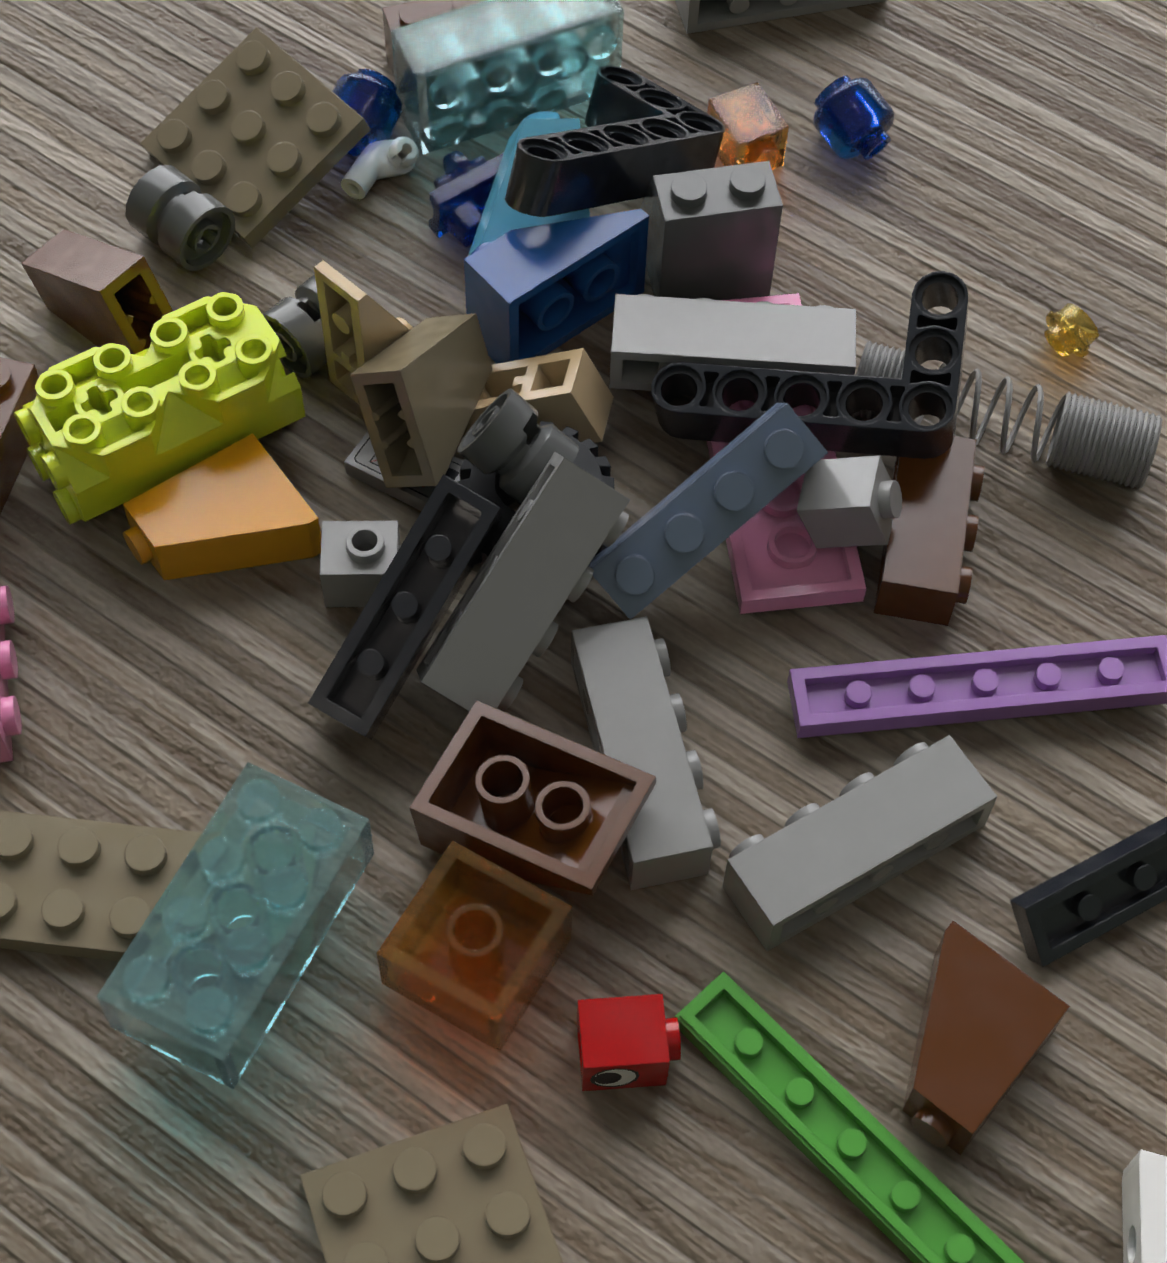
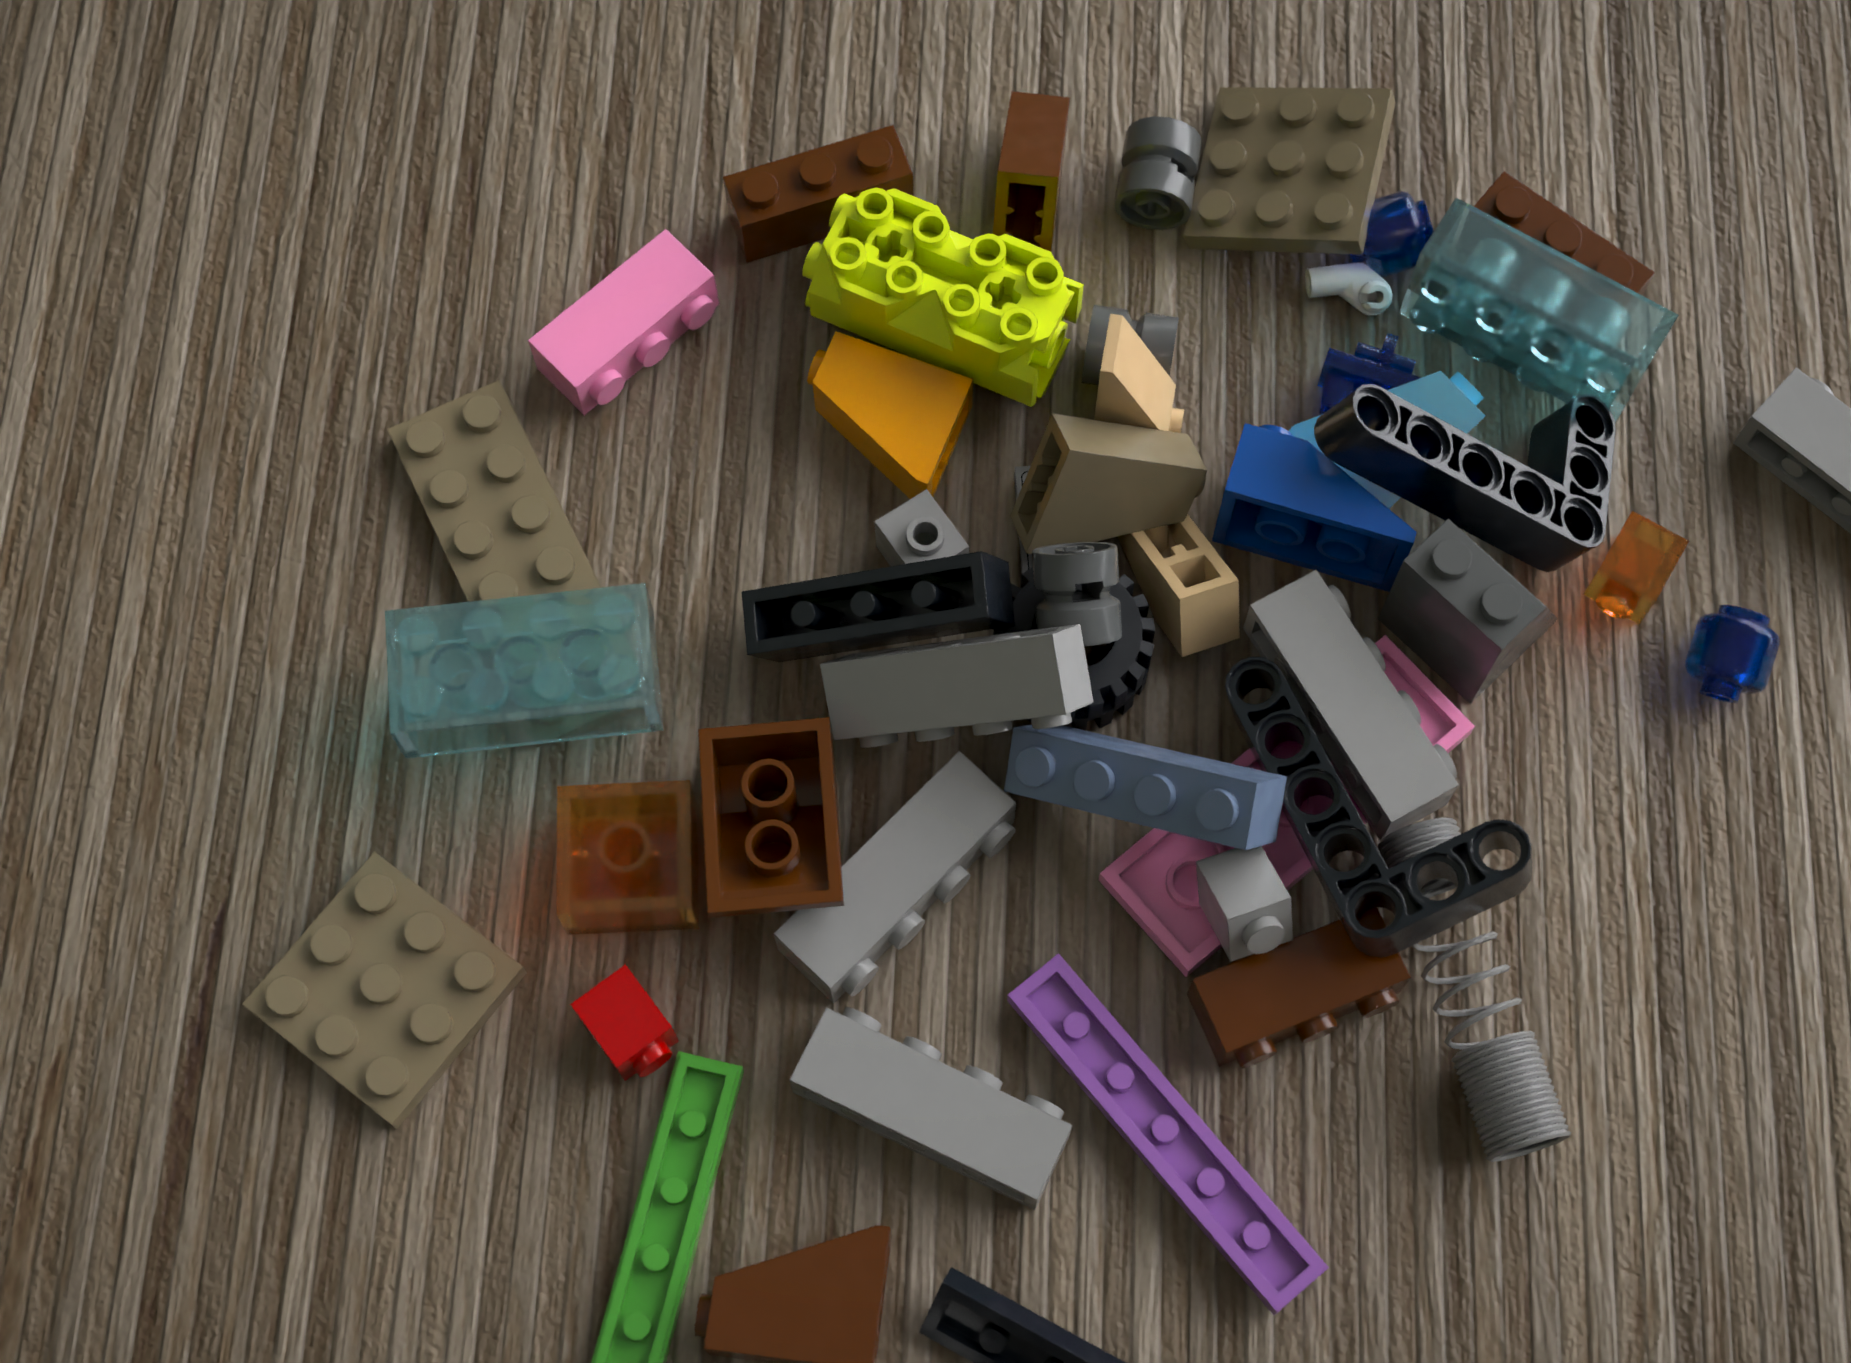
camera: 60 degrees right, 10 degrees up
(1070, 331) = (1629, 998): clear yellow plate -> none

